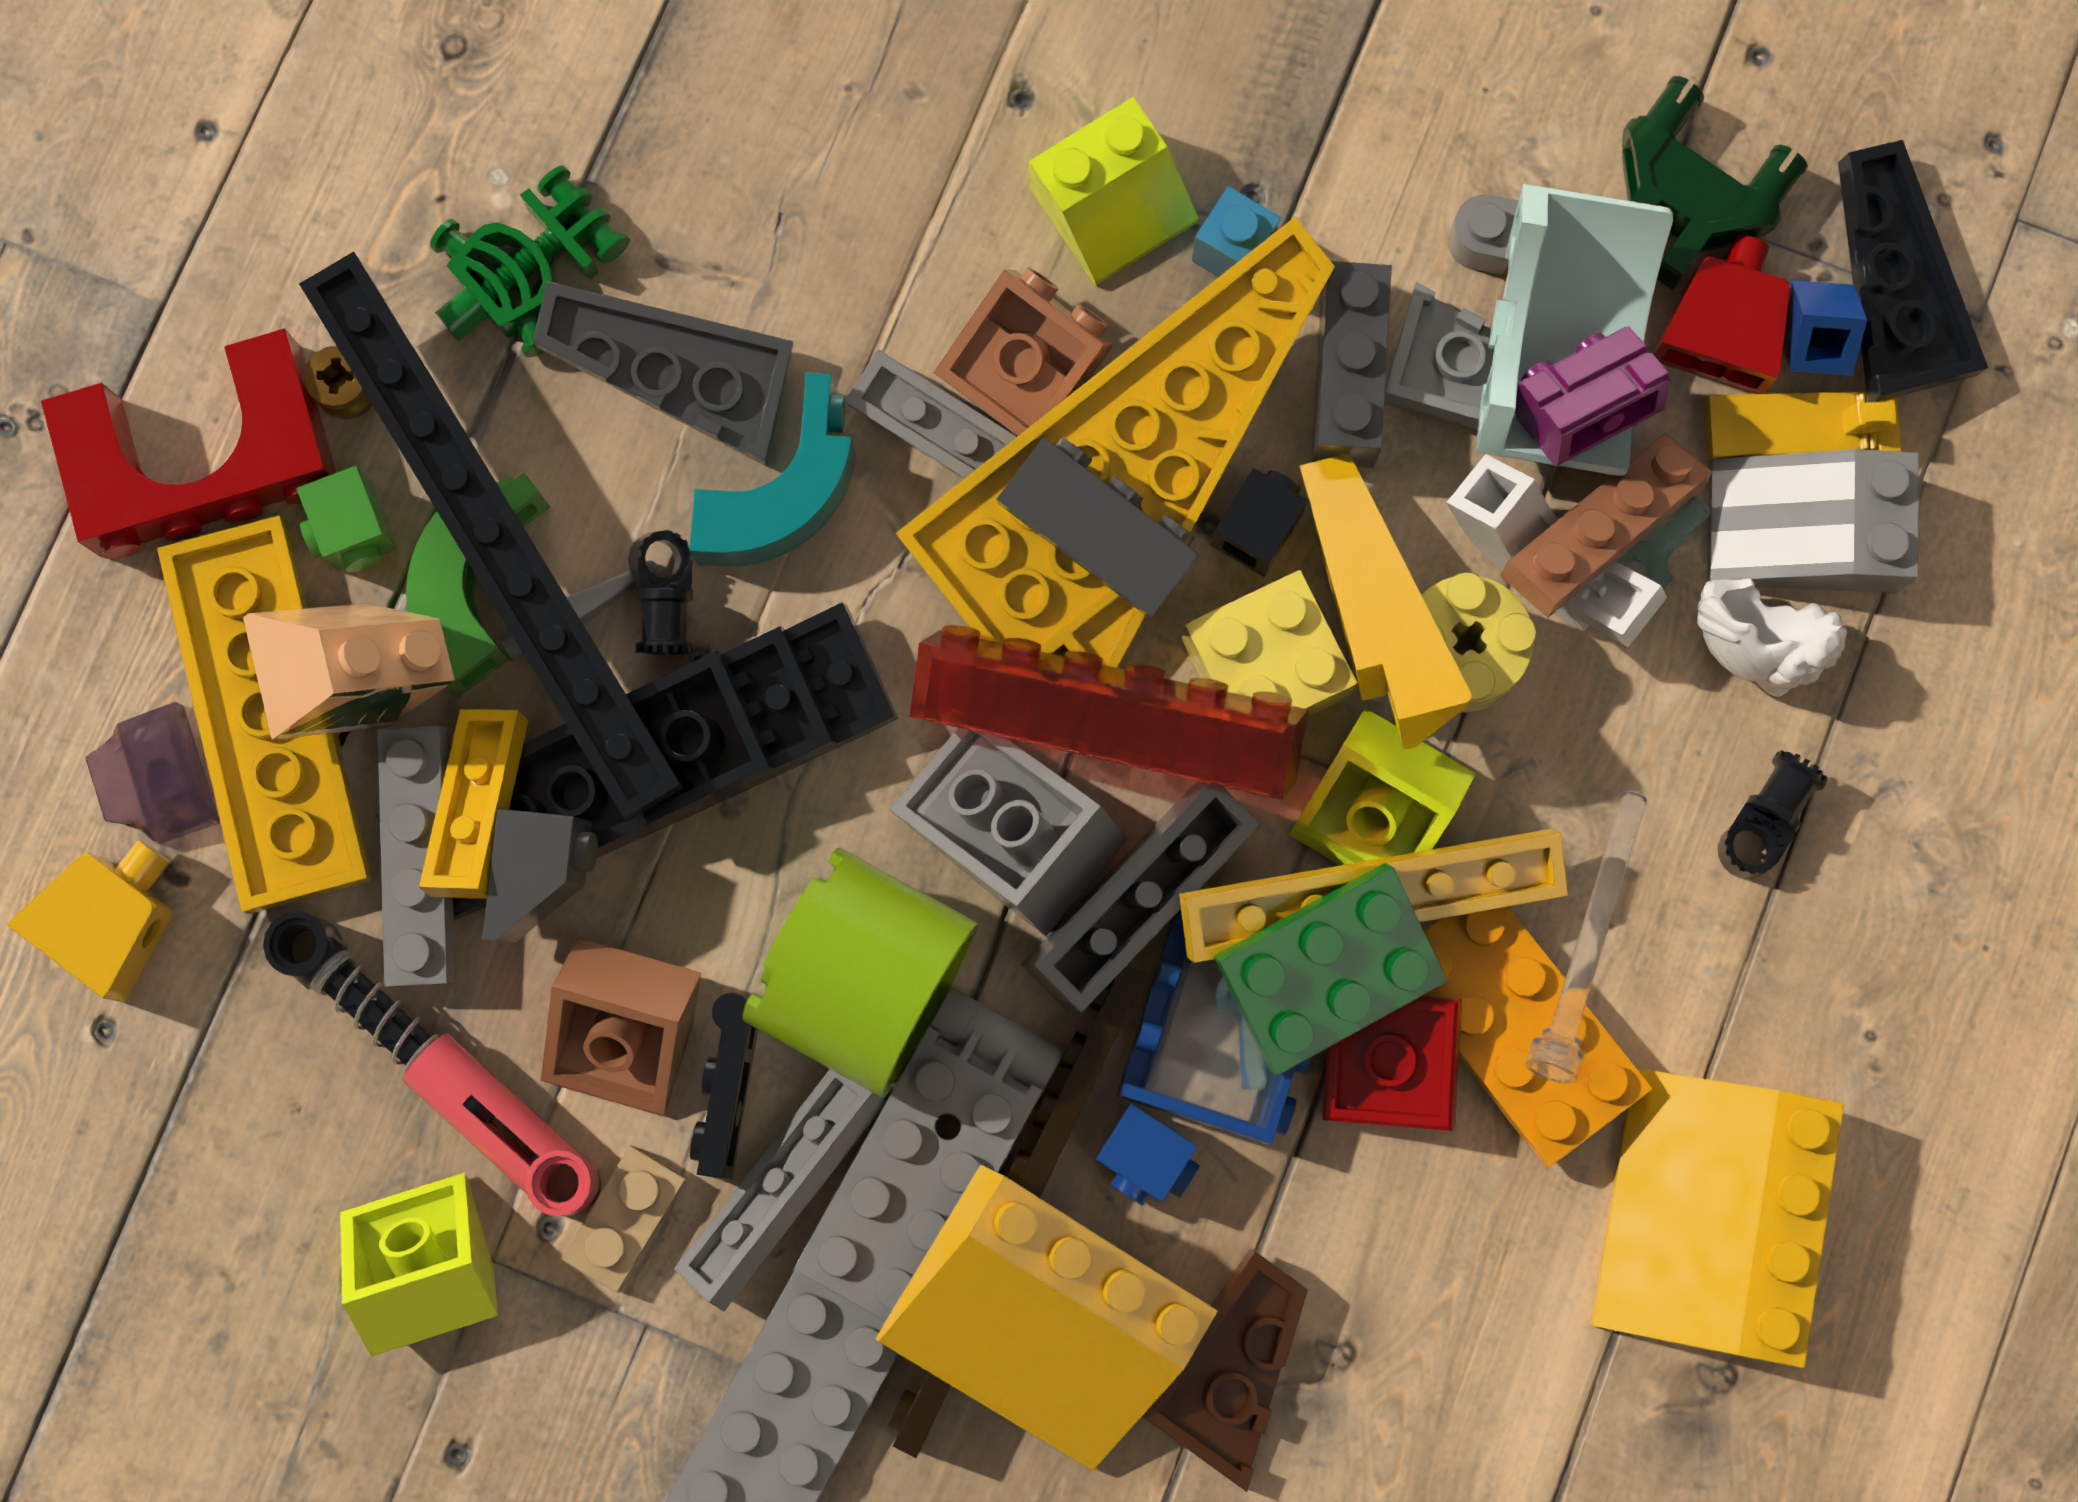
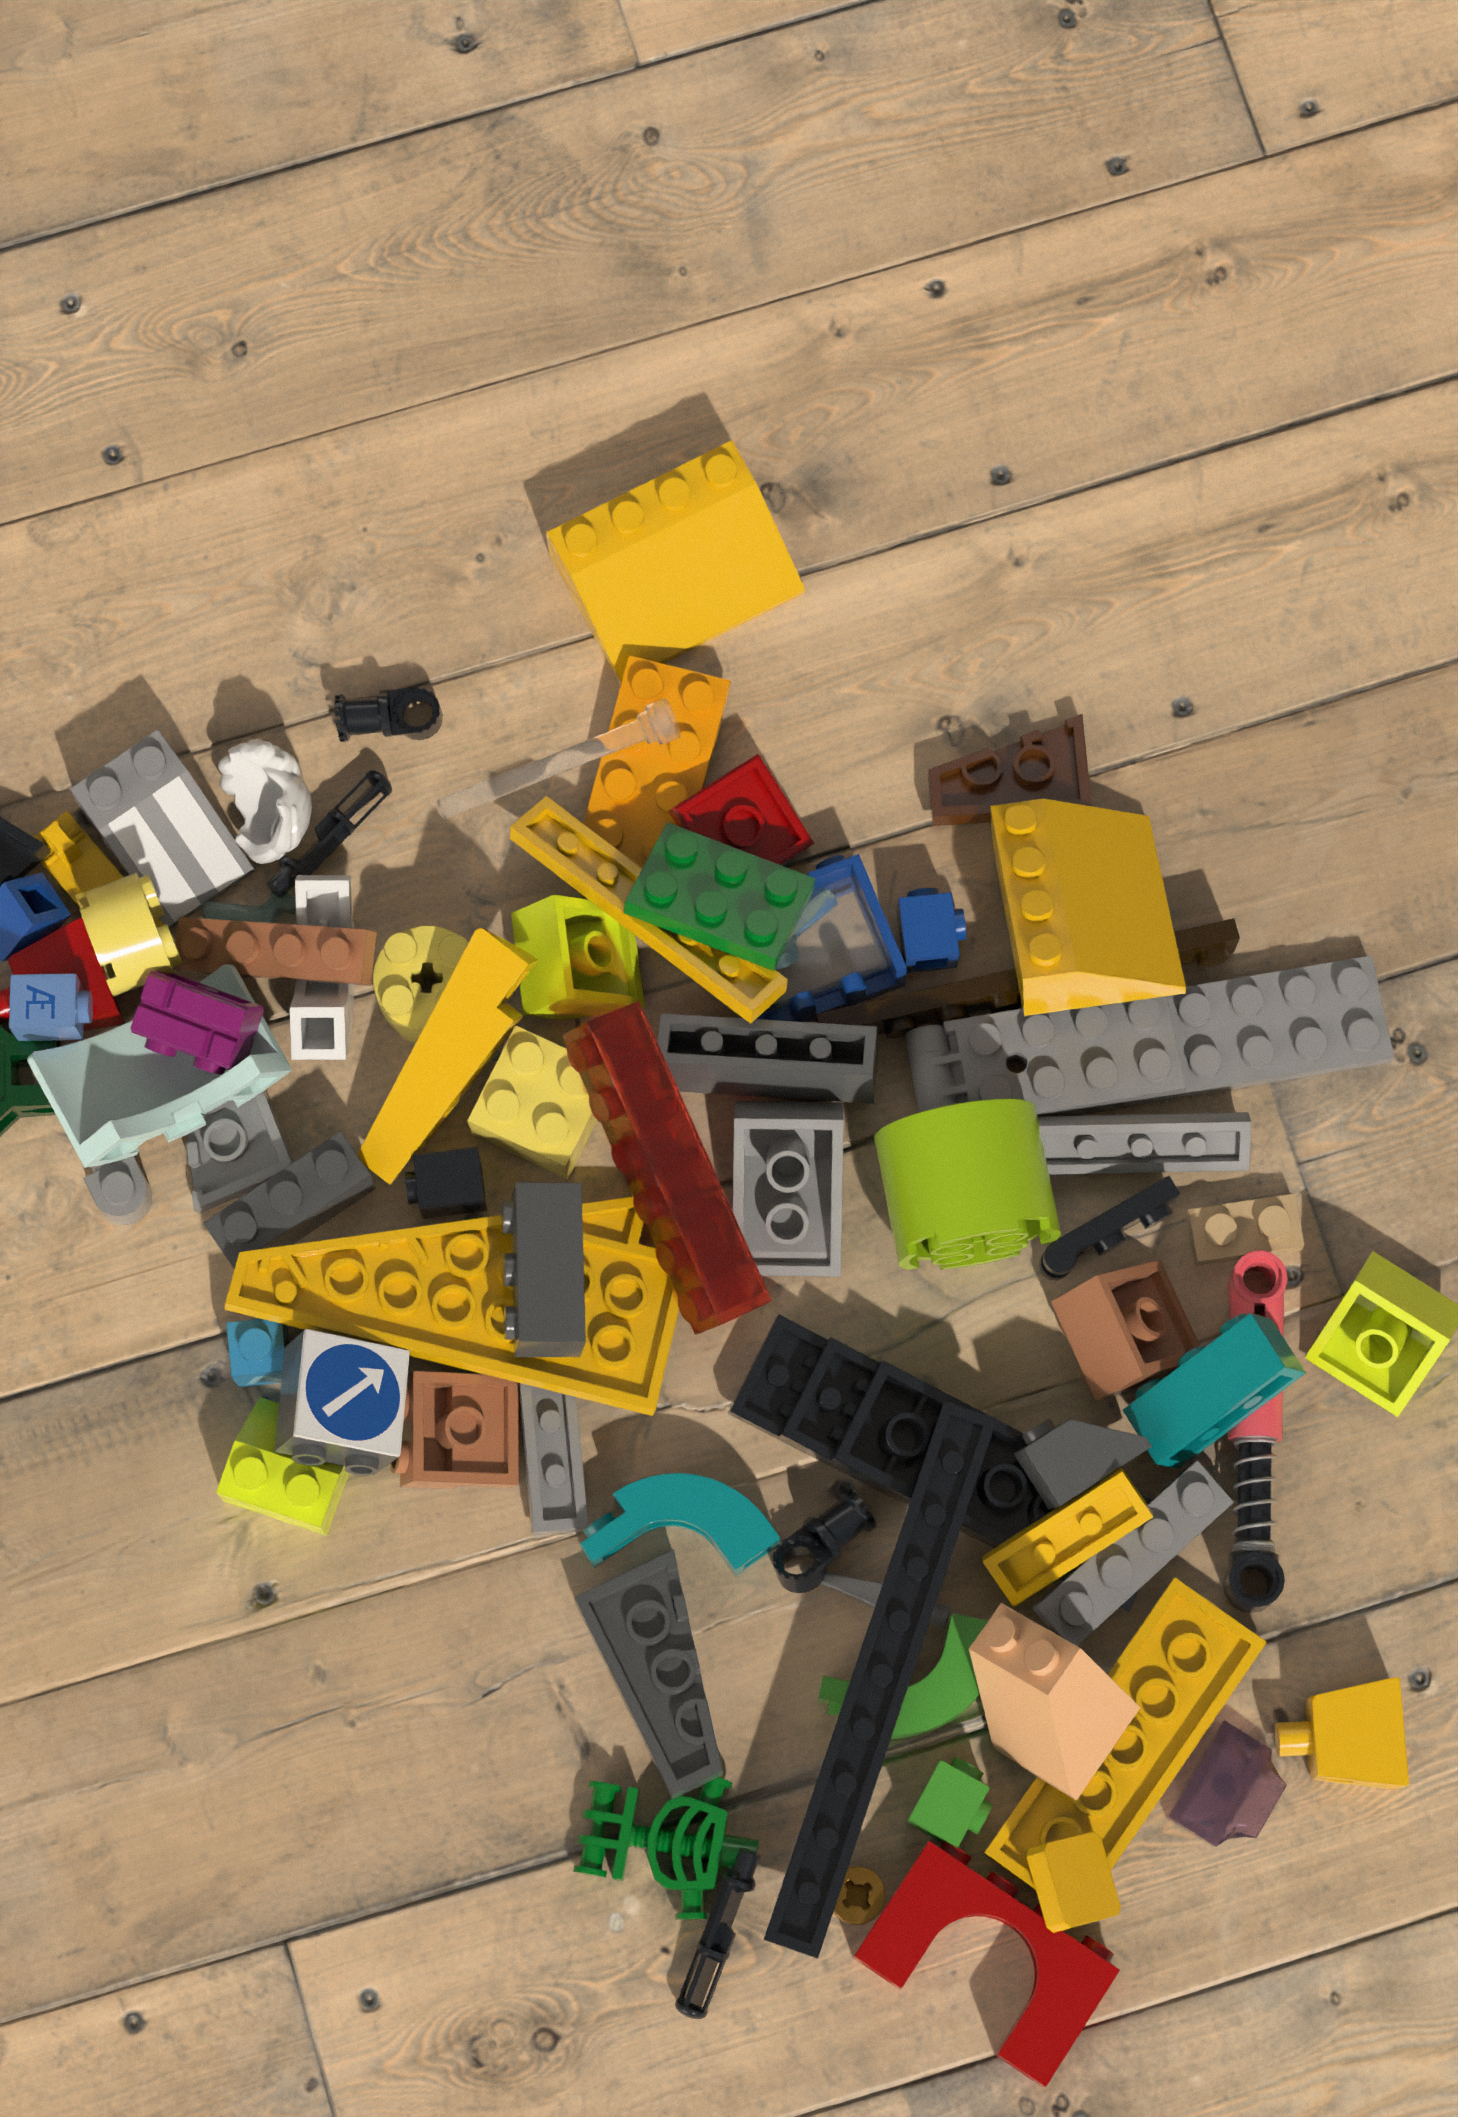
camera: 130 degrees left, 5 degrees down
(177, 557) = (1073, 1881): none -> yellow piece
(406, 238) = (717, 1936): none -> black piece
(491, 1047) = (1213, 1389): none -> teal brick
(1121, 254) = (342, 1402): none -> piece
(1688, 672) = (330, 833): none -> black piece
(1709, 271) = (48, 1007): none -> medium blue brick
(1728, 396) = (125, 931): none -> light yellow brick

